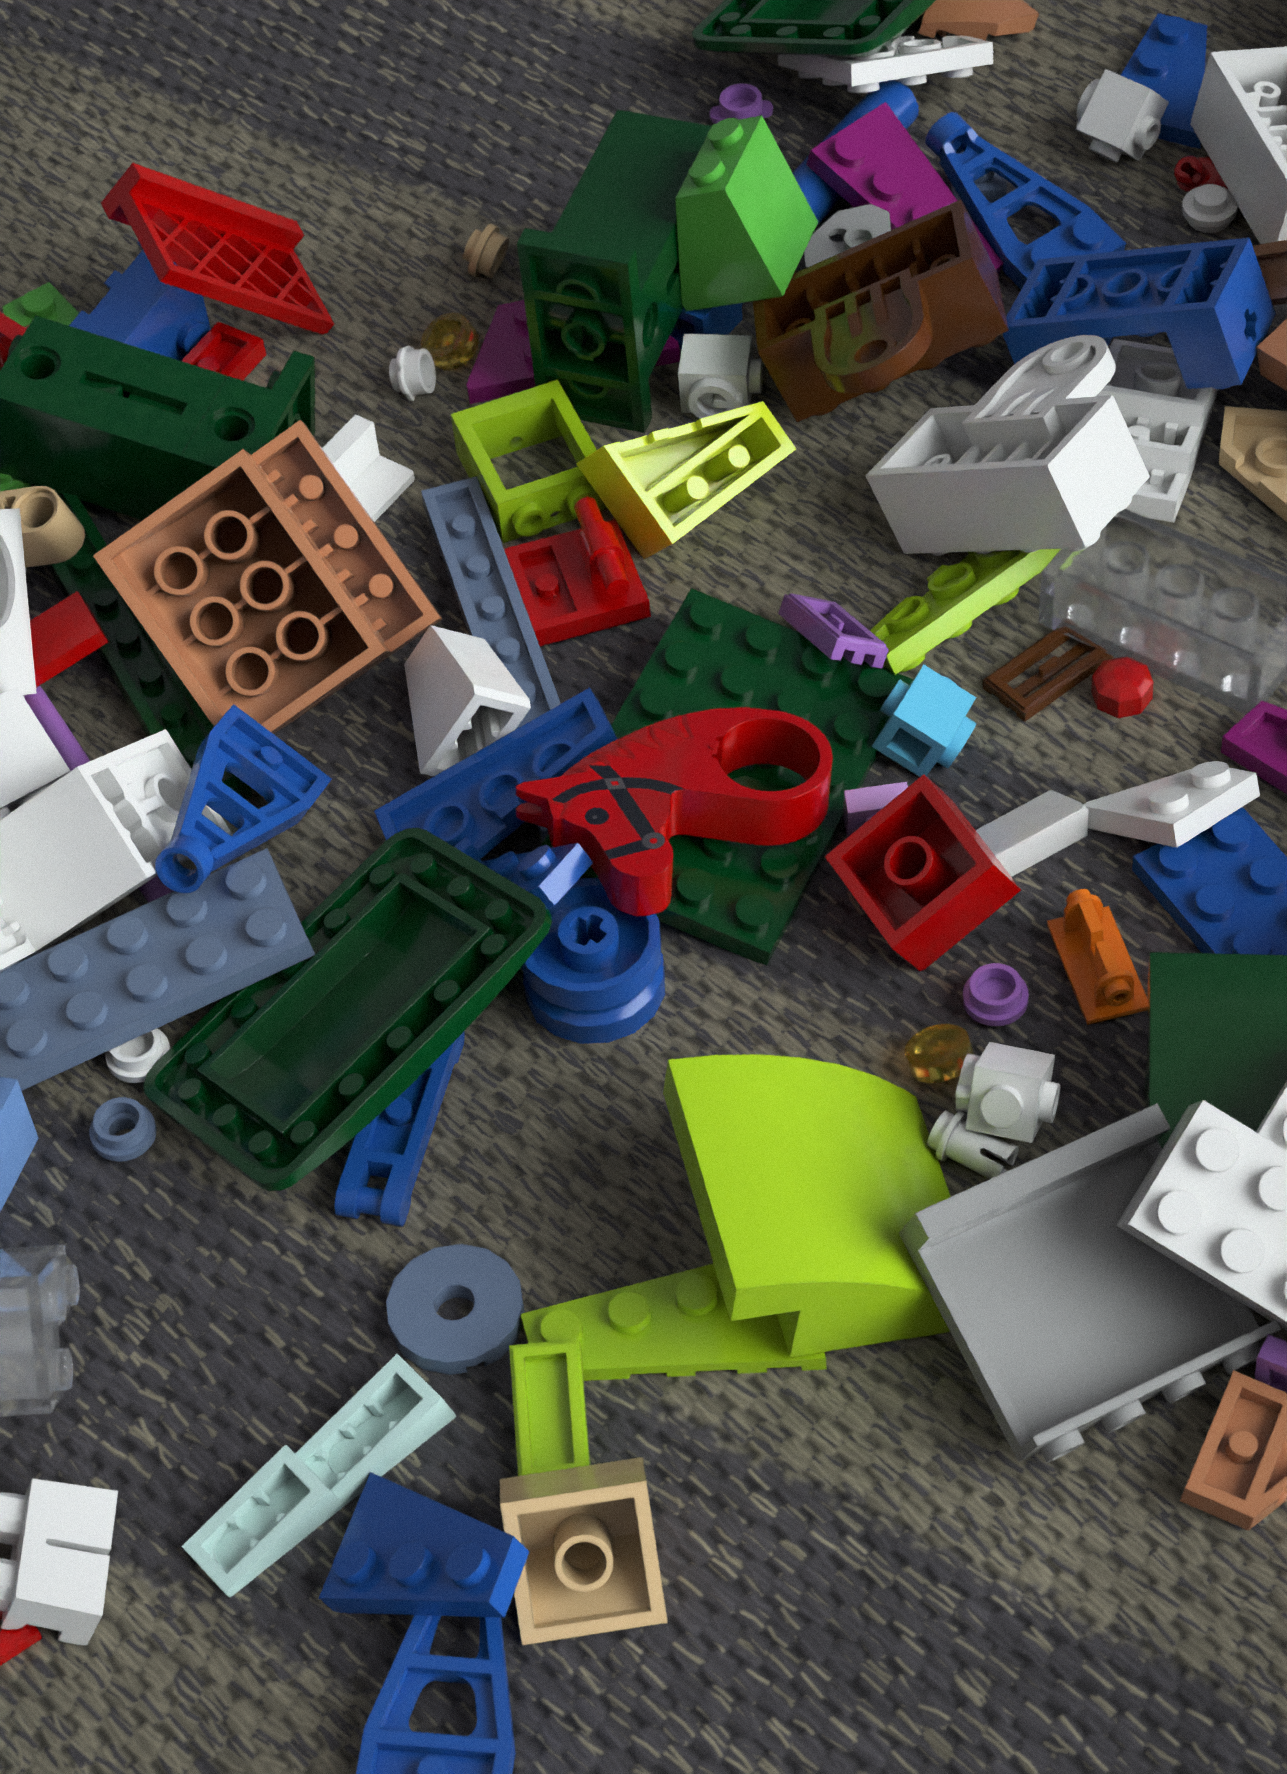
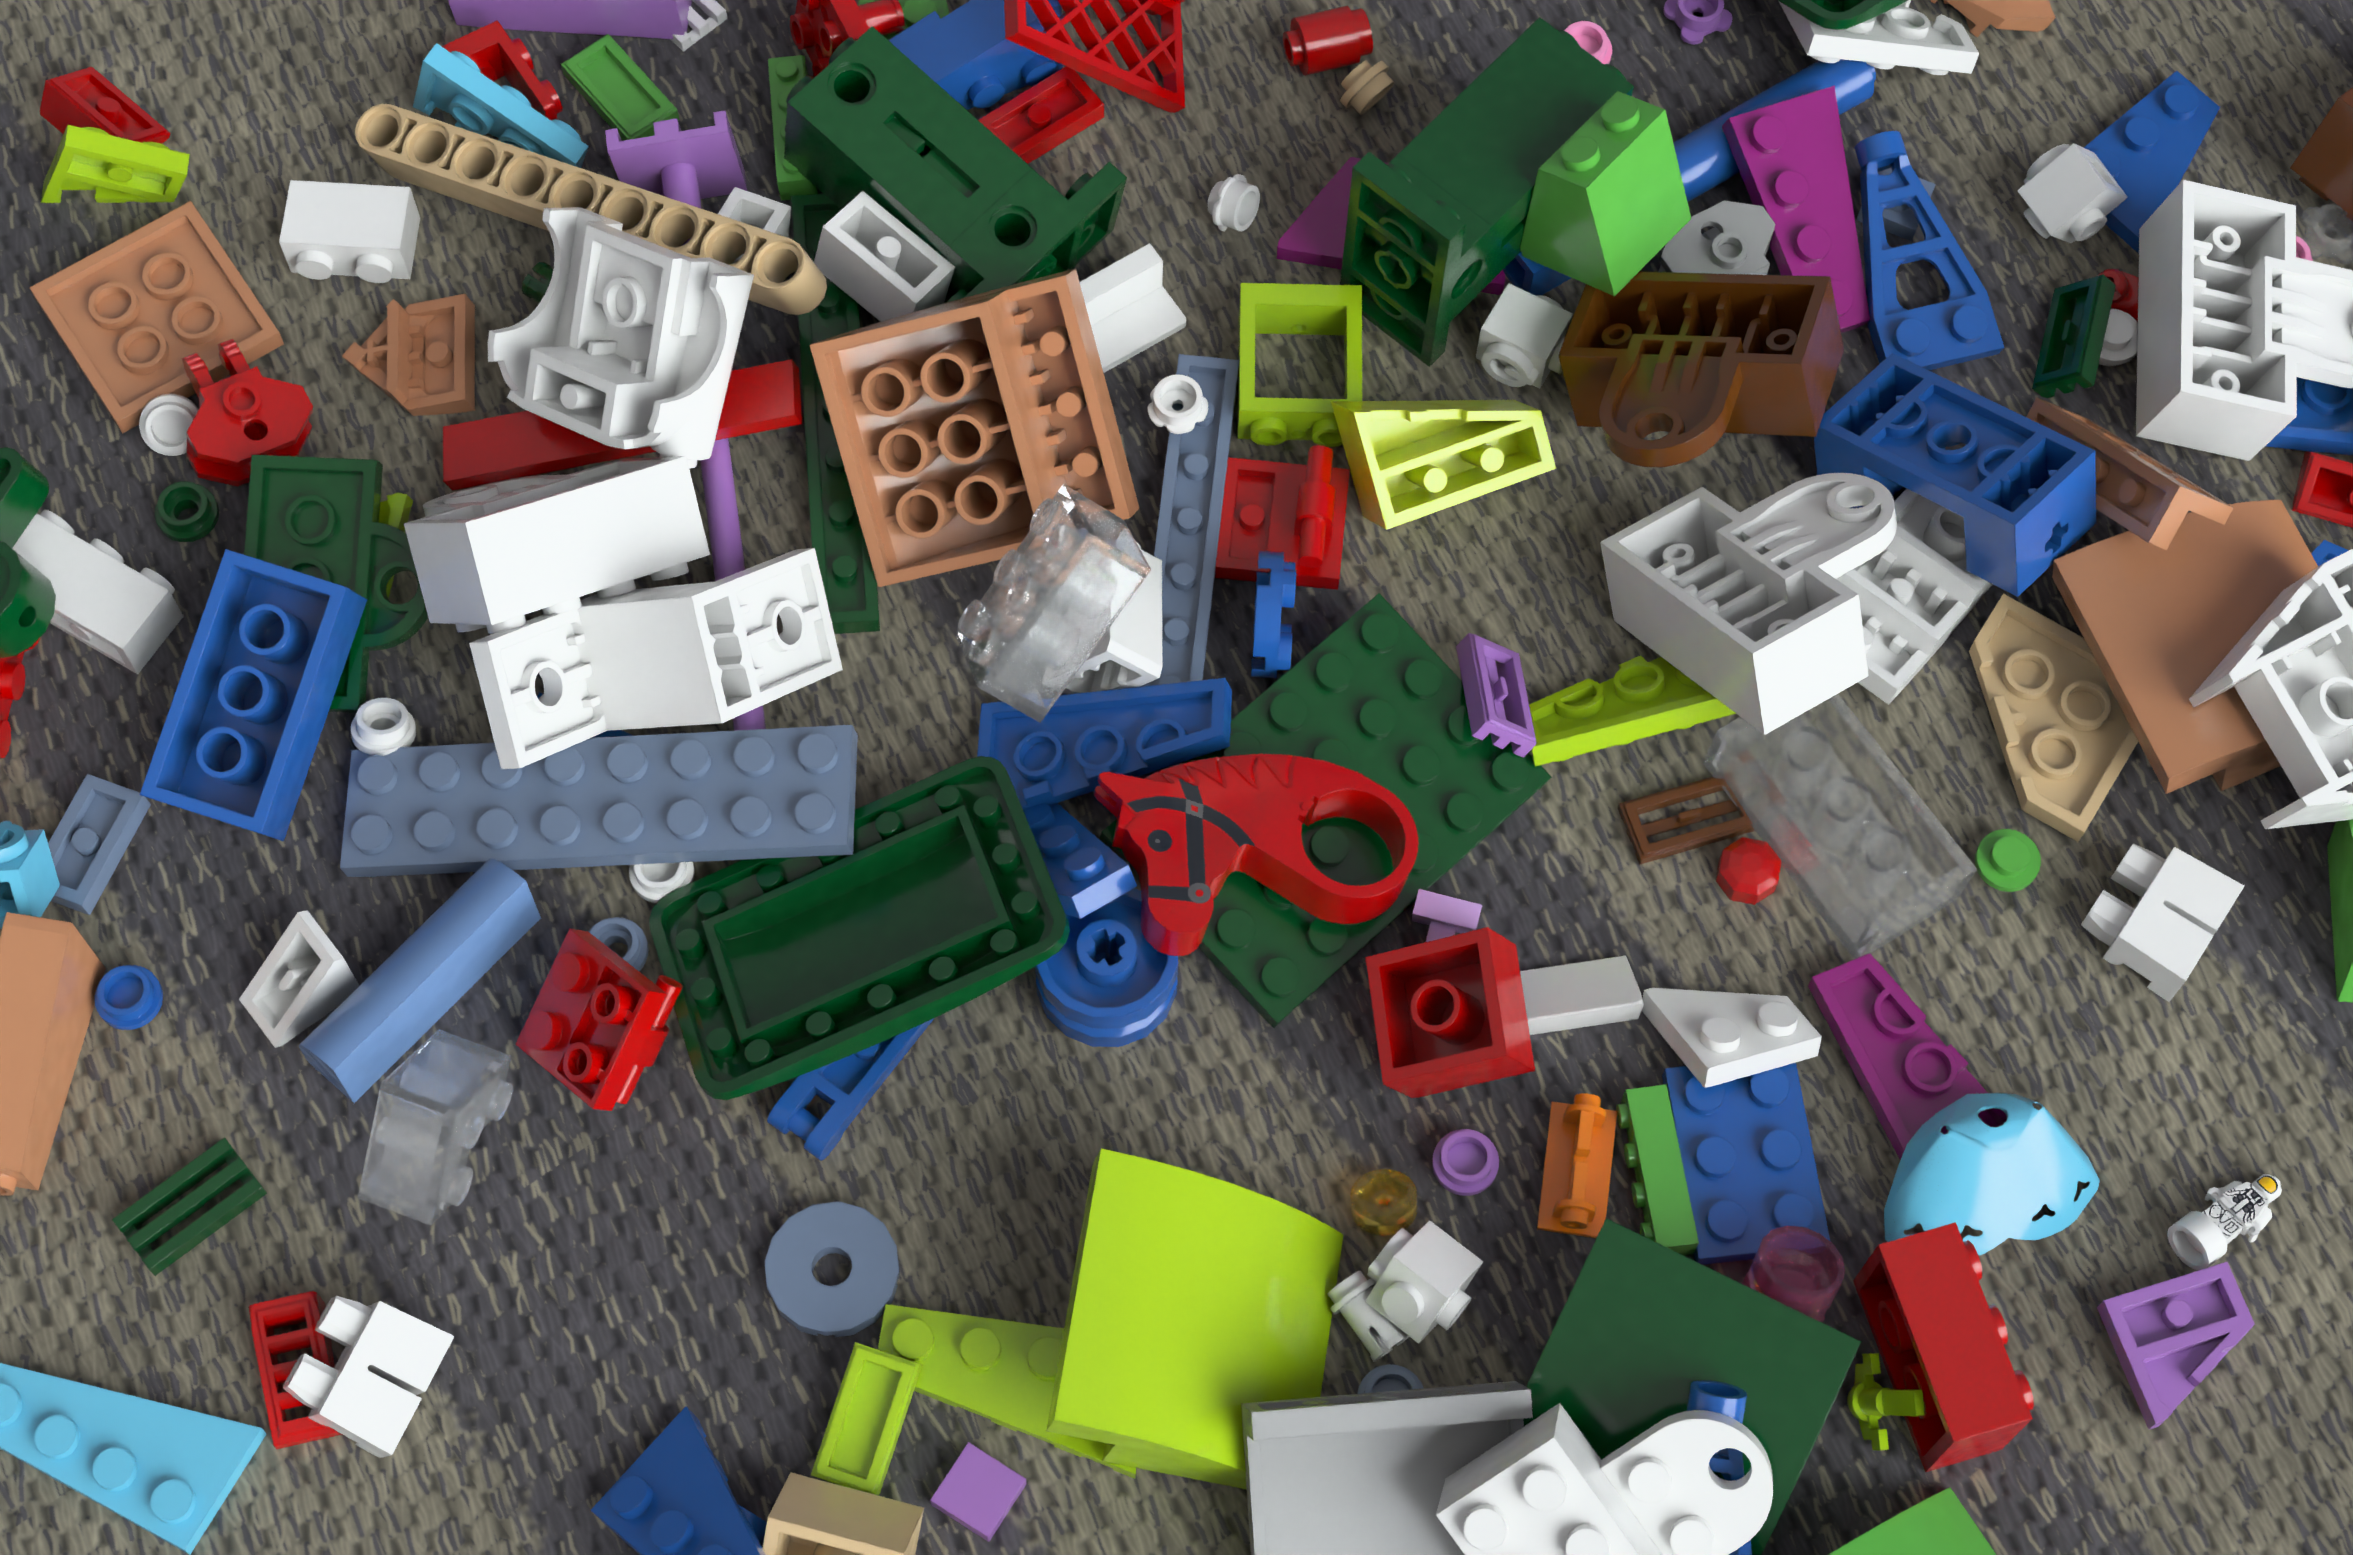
camera: 15 degrees right, 15 degrees up
(115, 493) = (881, 261): none -> white brick
(135, 1179) = (597, 1021): none -> red plate
(263, 763) = (899, 618): blue plate -> none
(307, 1487) = (643, 1387): light aqua slope -> none
(404, 684) = (1051, 602): none -> clear brick
(435, 230) = (1328, 39): none -> red brick
(439, 519) = (1179, 390): none -> white plate
(450, 341) = (1285, 180): clear yellow tile -> none
(602, 641) = (1270, 636): none -> blue plate
(685, 1435) = (978, 1492): none -> medium lavender tile
(925, 722) = (1537, 836): medium azure brick -> none
(1154, 915) = (1658, 1168): none -> bright green piece
(1186, 206) = (2082, 335): none -> dark green tile

